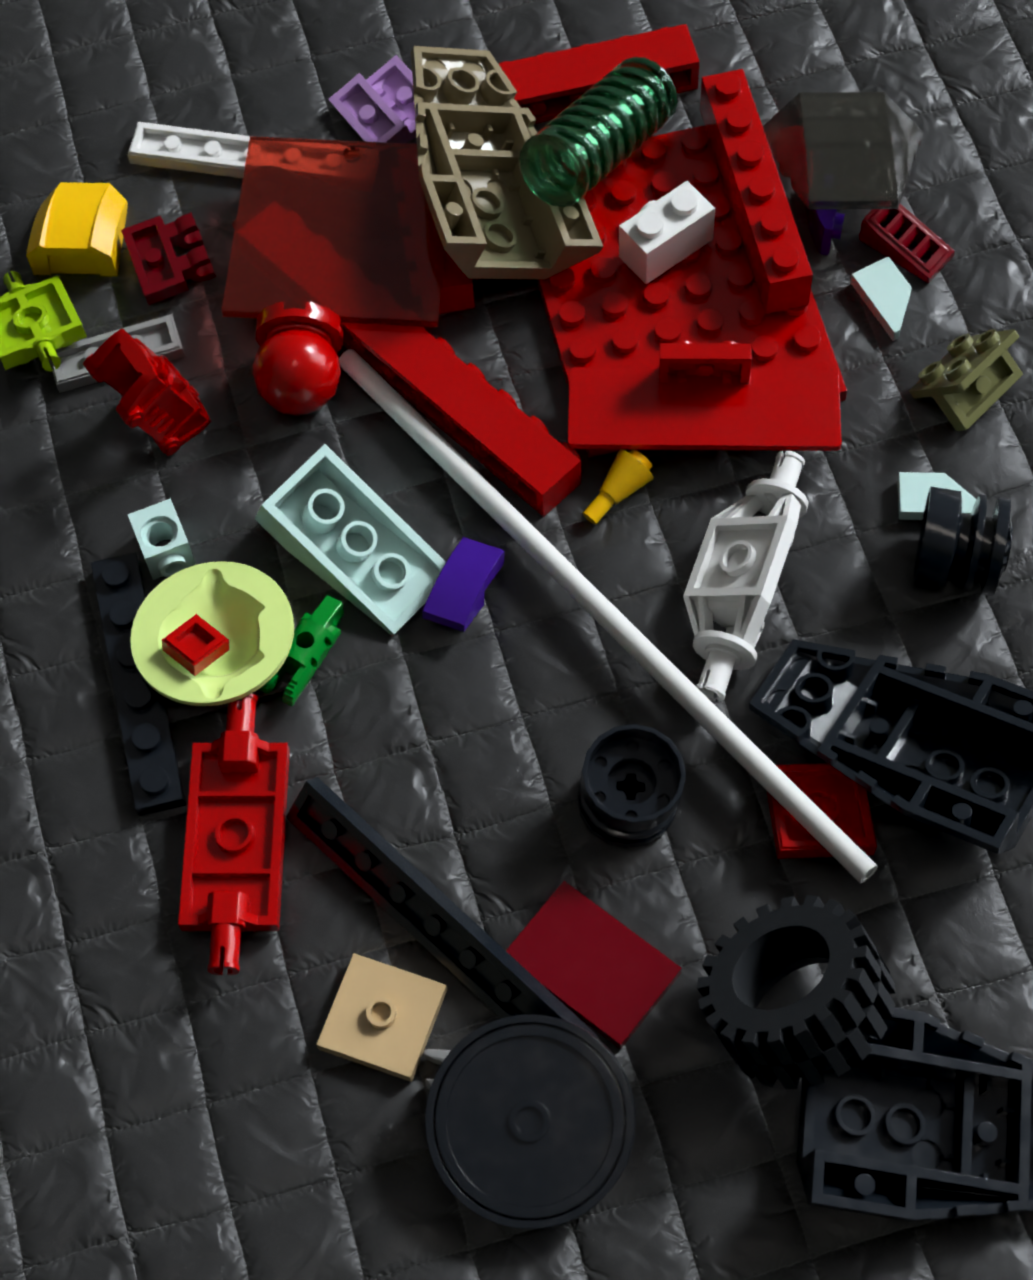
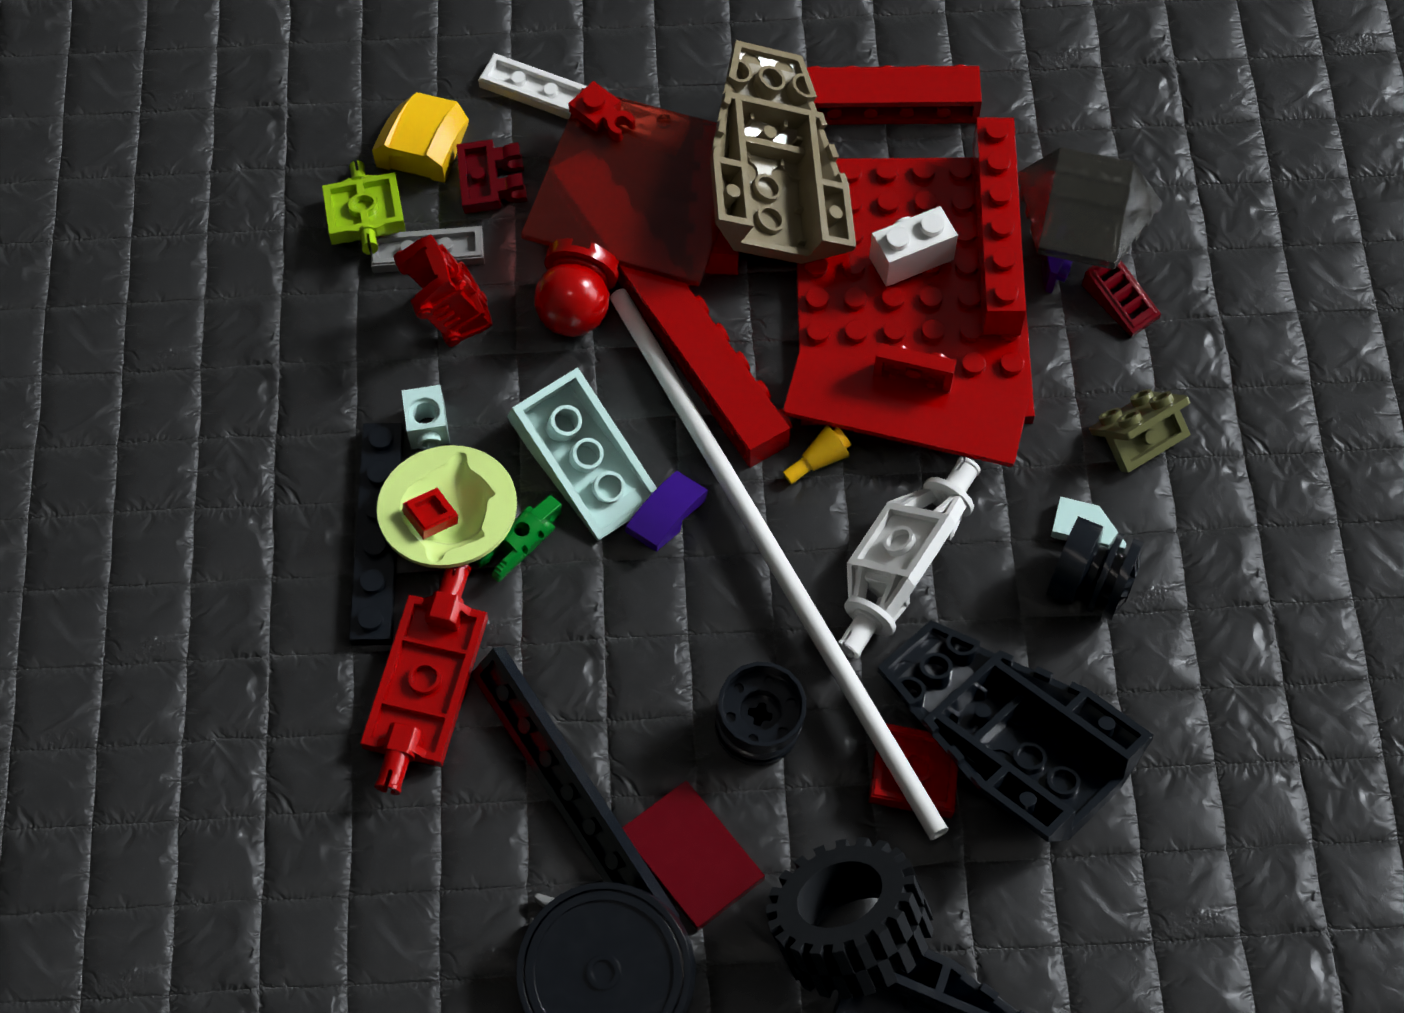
camera: 10 degrees right, 0 degrees up
(276, 153) = (600, 108): none -> red plate
(381, 105) = (699, 80): lavender slope -> none
(382, 1017) = (508, 858): tan plate -> none
(598, 131) = (878, 156): clear green piece -> none
(884, 293) = (1090, 338): light aqua tile -> none

